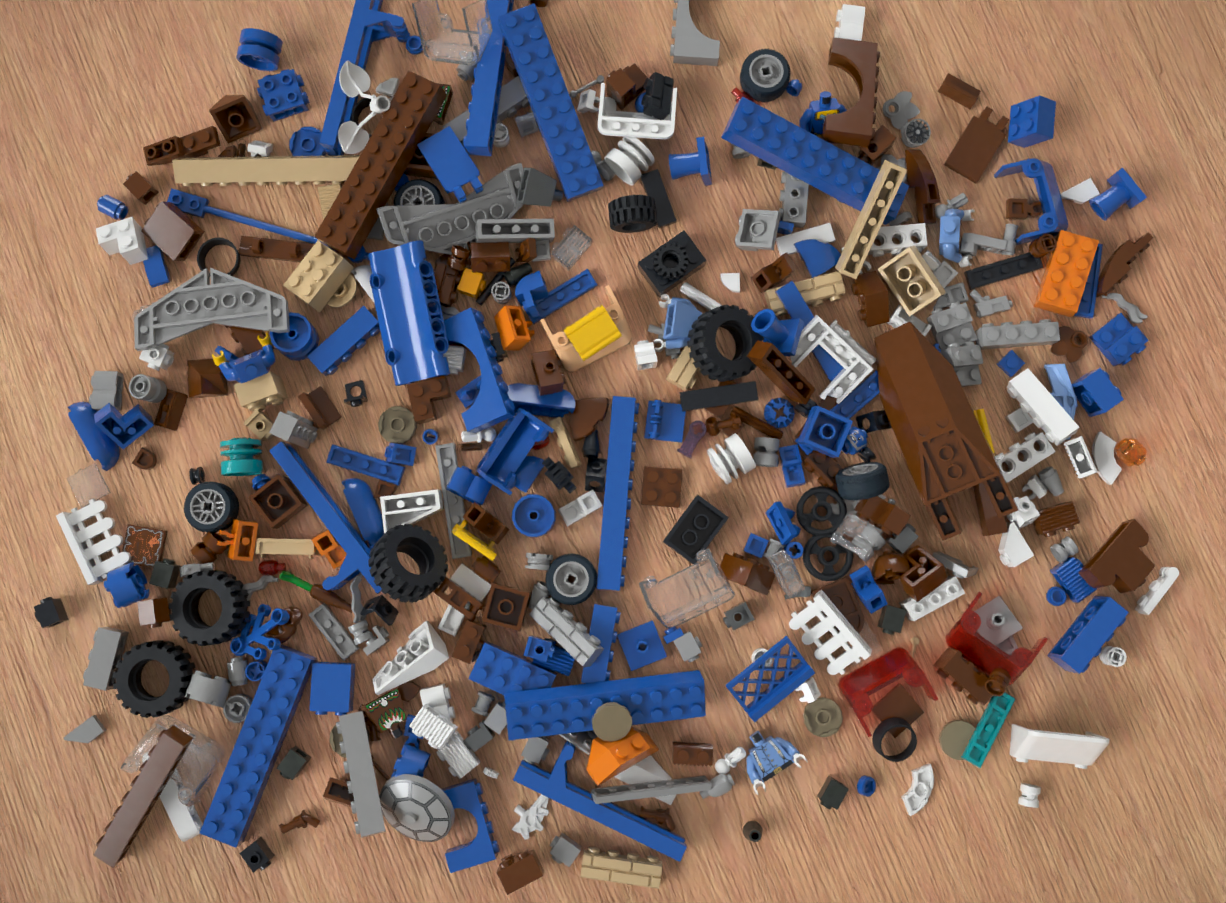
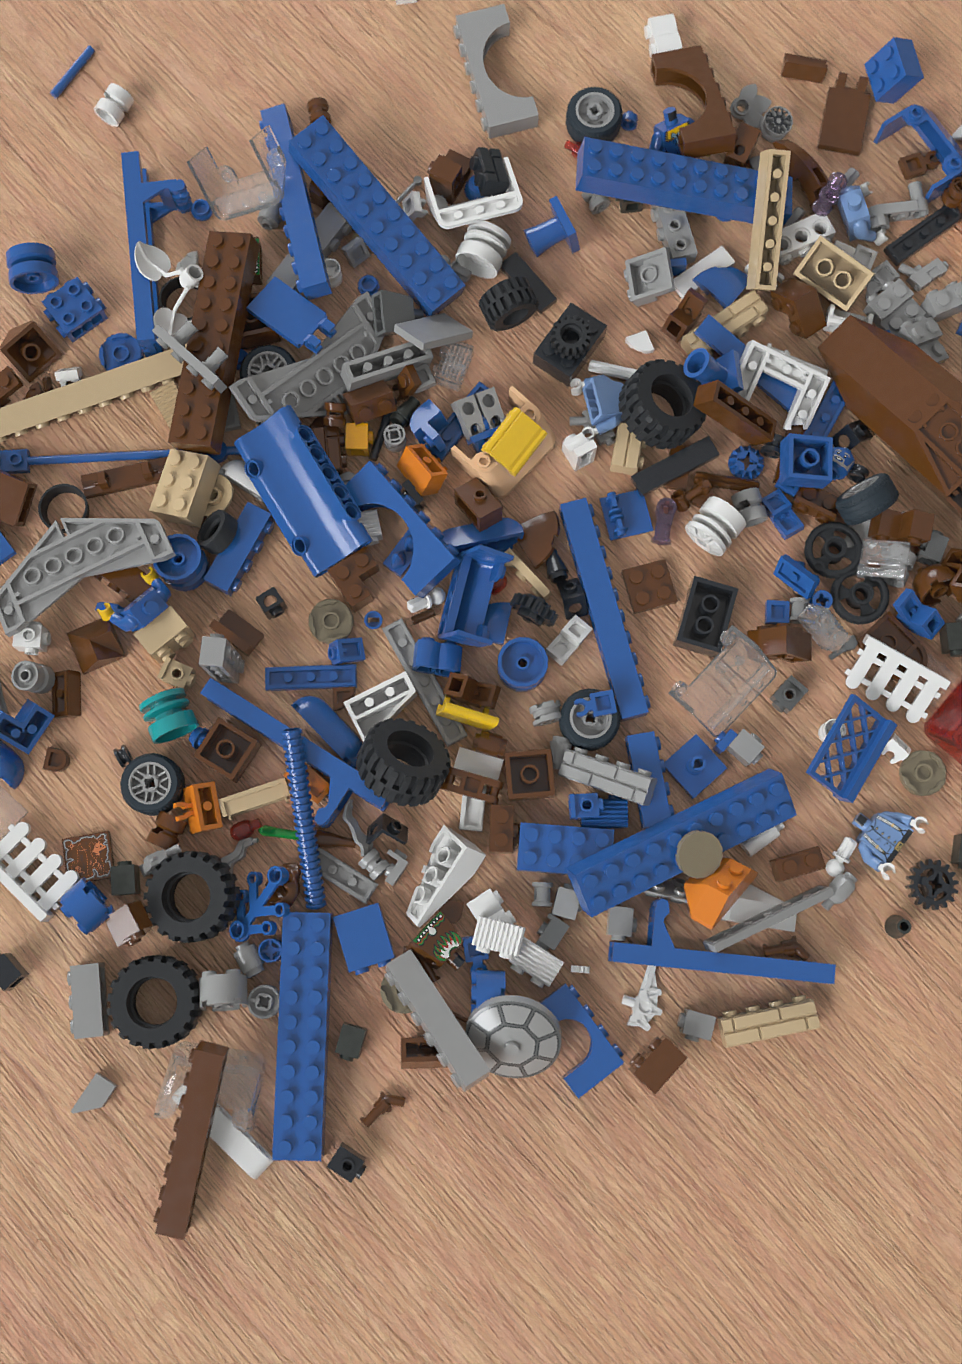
camera: 25 degrees left, 5 degrees down
(315, 578) = (303, 818): none -> blue piece
(330, 322) = (217, 532): none -> black tyre
(347, 168) = (180, 353): none -> light grey plate
(527, 156) = (369, 284): none -> blue plate
(562, 216) = (433, 331): none -> light grey tile
(571, 307) = (479, 416): none -> light grey hips
(581, 572) = (600, 704): none -> blue plate
(666, 726) = (761, 840): none -> white cylinder
(789, 815) = (934, 875): none -> black gear
(932, 213) = (829, 194): none -> clear purple connector

